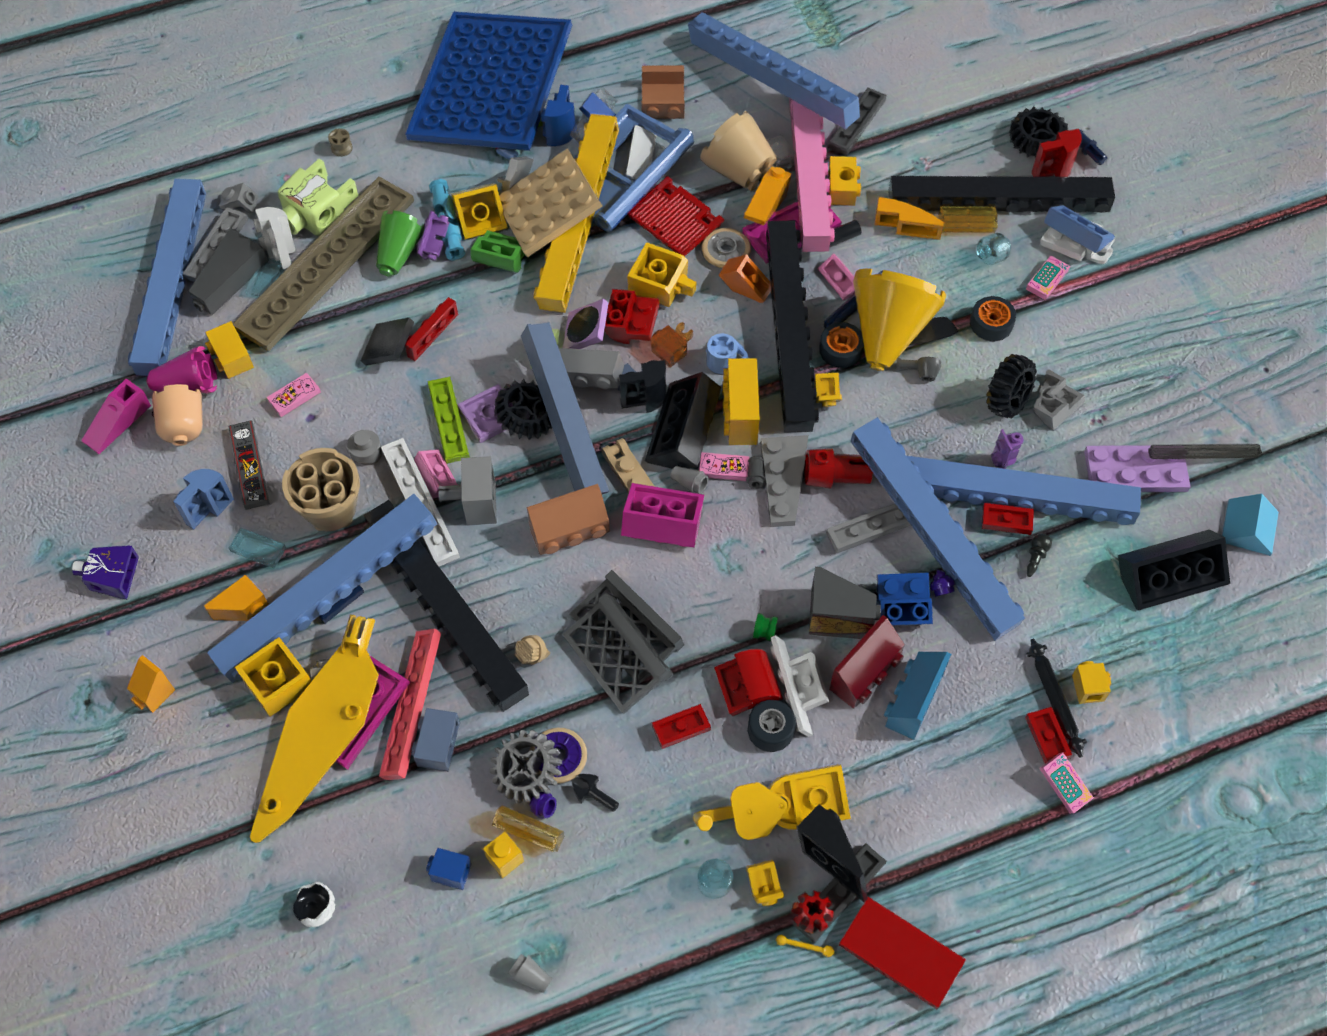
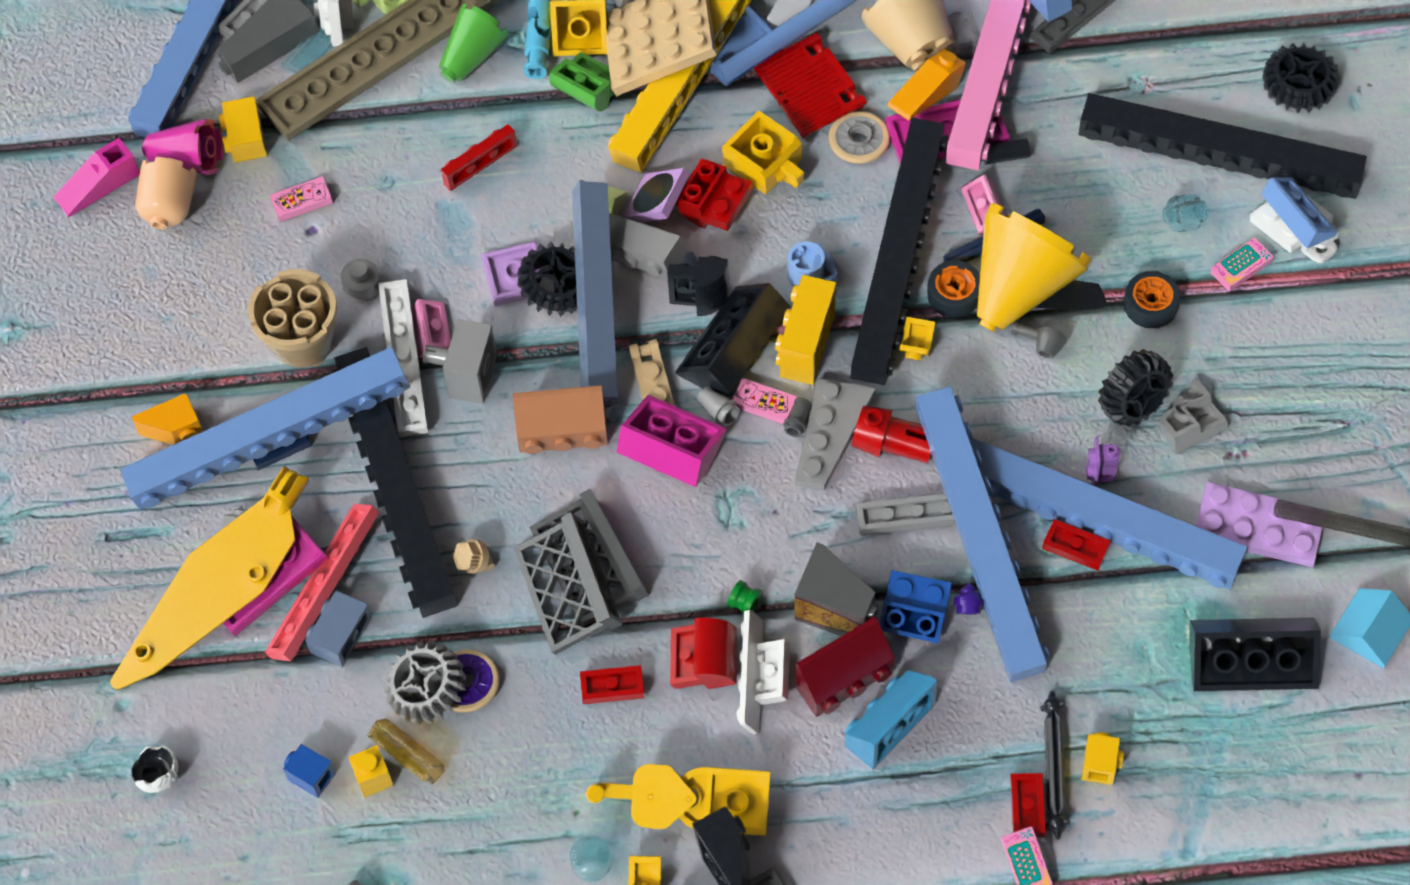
camera: 20 degrees right, 0 degrees up
(108, 570) = (42, 351): dark purple torso -> none
(149, 685) = (49, 490): light orange slope -> none
(204, 494) = (164, 293): medium blue brick -> none
(248, 465) = (227, 269): tile -> none
(257, 547) = (209, 366): clear light blue tile -> none
(274, 676) = (183, 514): yellow brick -> none
(387, 341) = (423, 161): black tile -> none
(428, 245) = (518, 33): medium lavender hinge -> none
(448, 419) = (465, 269): lime tile -> none
(543, 806) = (431, 731): dark purple plate -> none
(593, 792) = (491, 731): black bar -> none
(671, 344) = (751, 242): clear orange brick -> none
(745, 278) = (867, 181): orange slope -> none
(771, 715) = (709, 699): black wheel -> none
(843, 180) = (1028, 99): yellow brick -> none
(907, 219) = (1091, 151): light orange slope -> none
(968, 219) = (1168, 168): clear yellow piece -> none
(1041, 544) = (1104, 585): pearl dark grey bar -> none
(1058, 155) = (1309, 113): red brick -> none
(1090, 148) = (1358, 110): dark blue axle -> none

